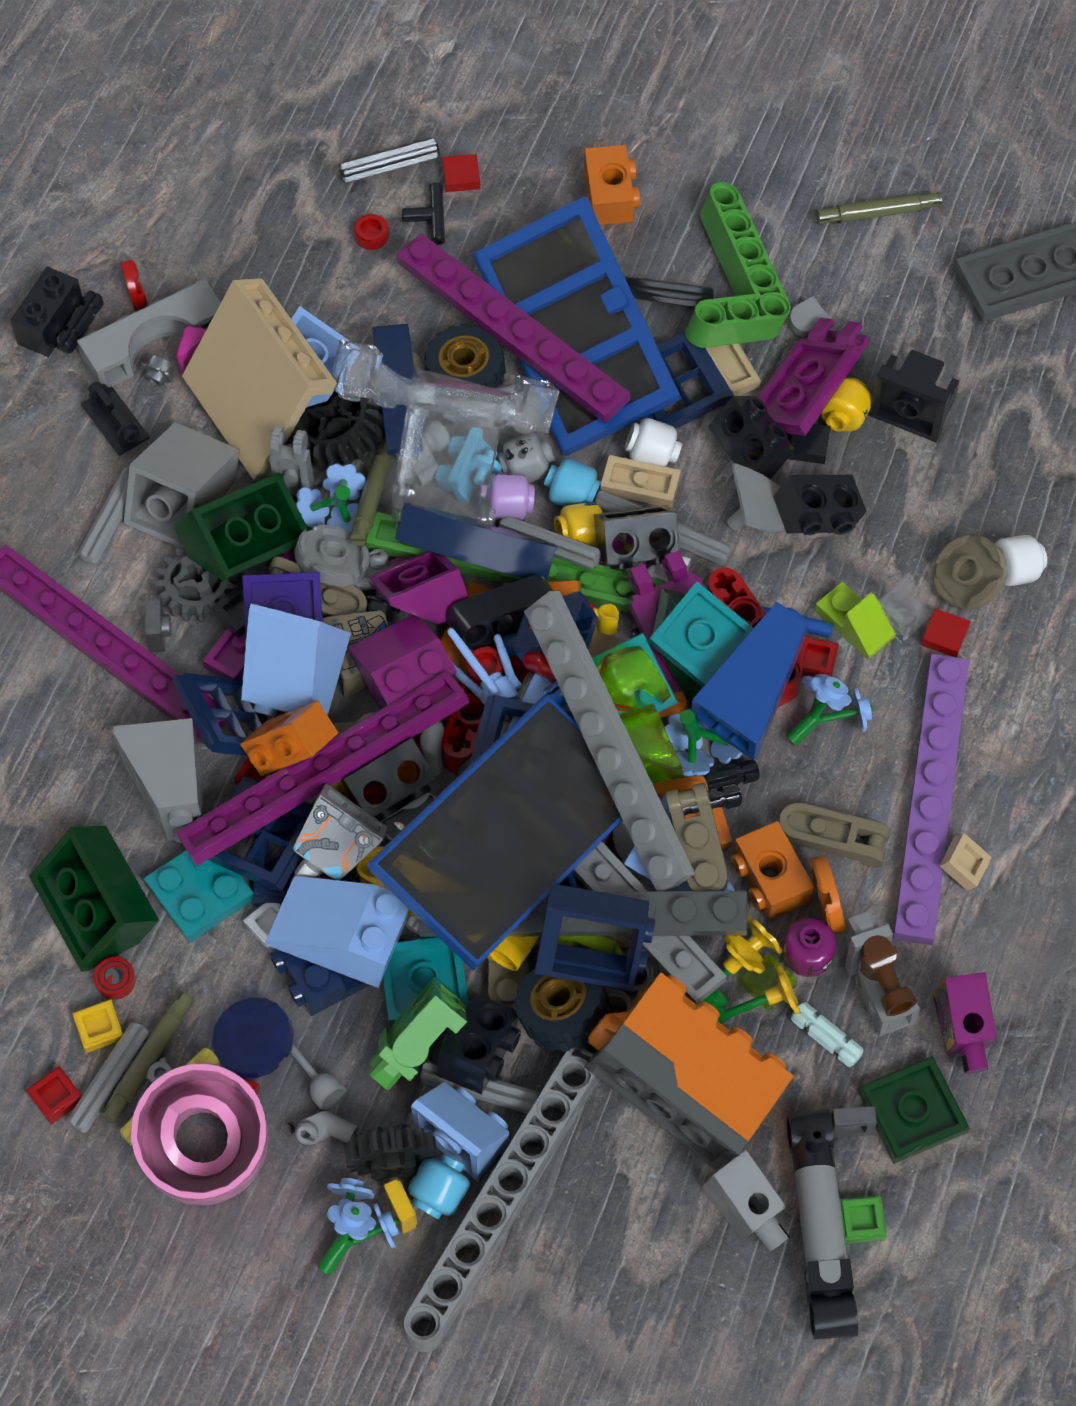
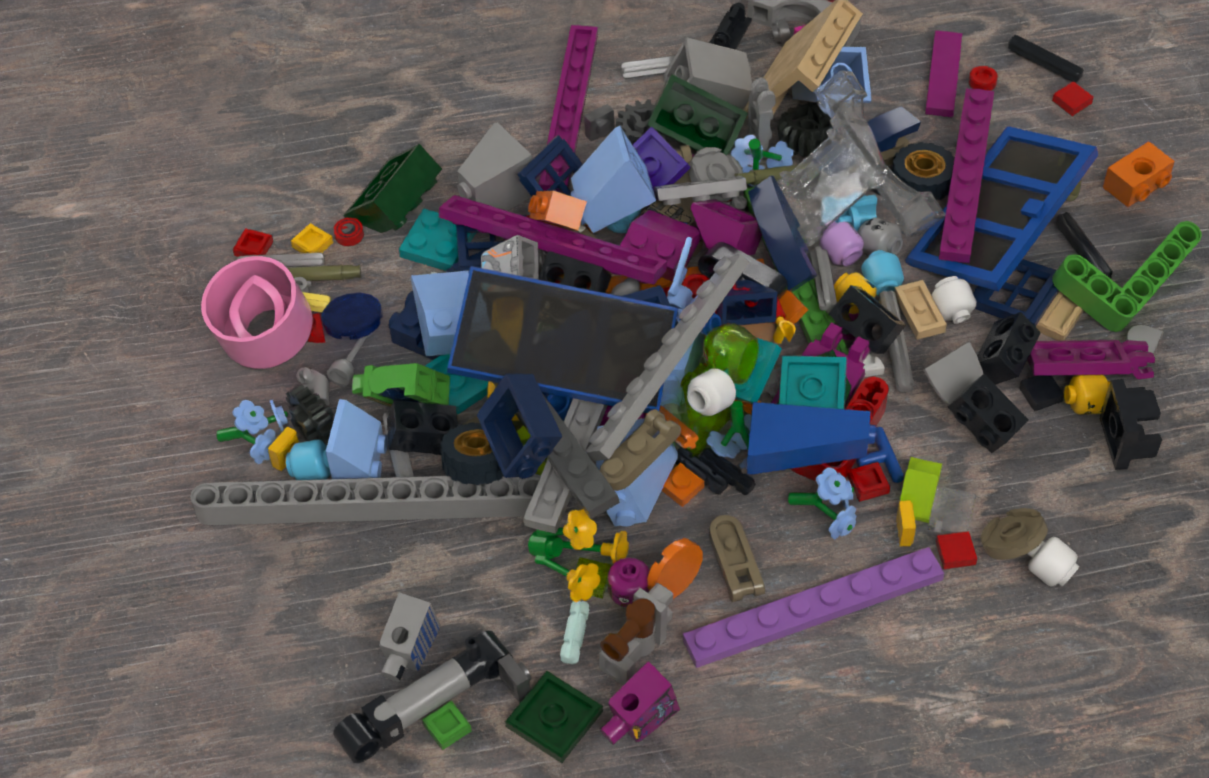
camera: 60 degrees right, 10 degrees down
(336, 261) = (944, 73): none -> magenta tile
(359, 579) = (700, 190): none -> light grey plate
(434, 213) = (1025, 101): black piece -> none
(670, 729) = (711, 392): none -> white head
(687, 1070) = (474, 544): piece -> none
(771, 849) = (679, 516): orange brick -> none
(893, 656) = (905, 523): none -> yellow tile
(965, 861) = (773, 649): tan plate -> none

